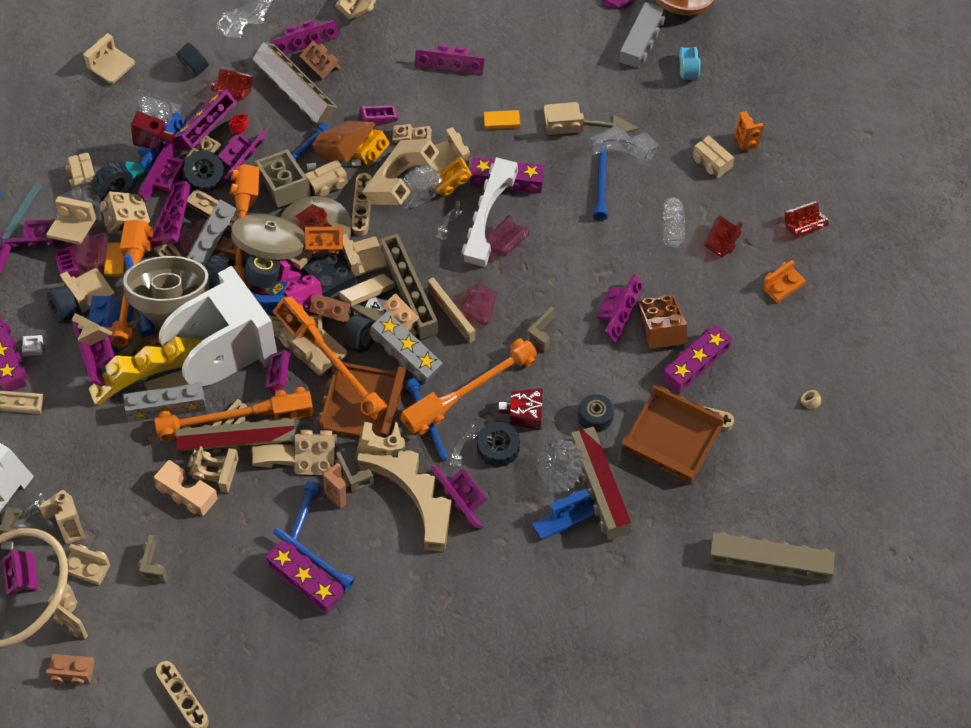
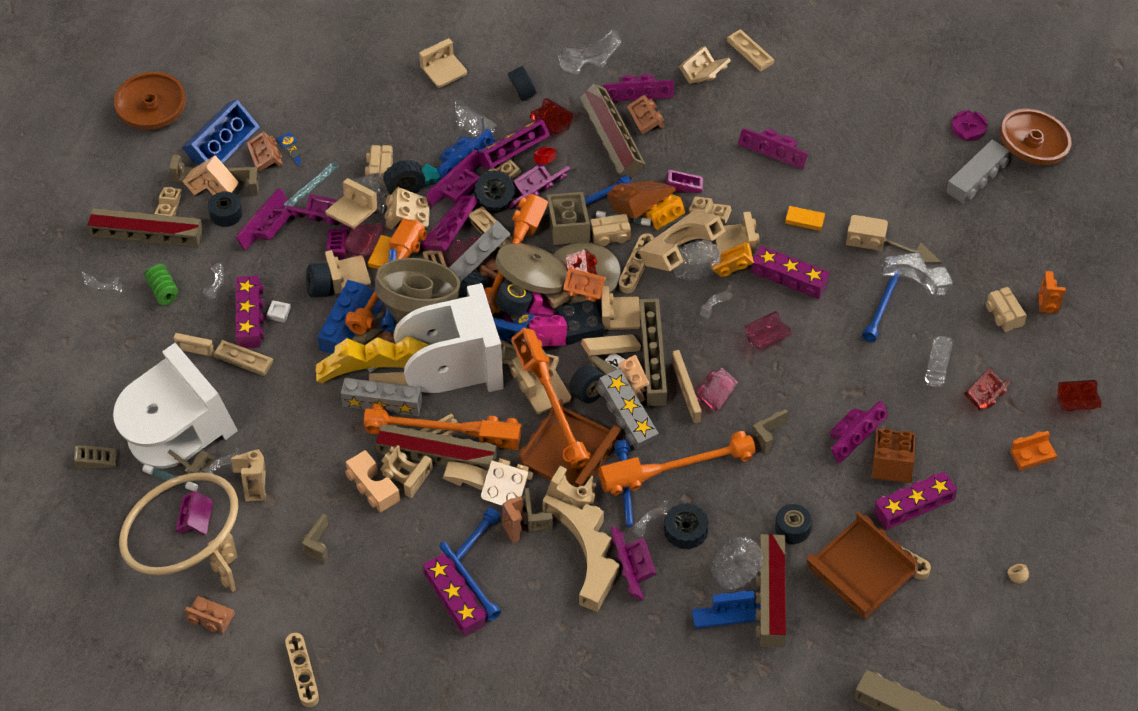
camera: 20 degrees right, 5 degrees down
(87, 564) = (257, 524): tan bracket -> none
(91, 331) = (332, 310): tan slope -> none
(94, 357) = (331, 328): magenta bracket -> none
(149, 131) = (454, 140): dark red torso -> none
(277, 371) = (497, 398): magenta panel -> none
(330, 308) = (568, 351): nougat bracket -> none
(502, 175) = (781, 270): white arch -> none
(524, 408) = (724, 499): dark red torso -> none
(689, 63) = (1015, 211): medium azure animal -> none

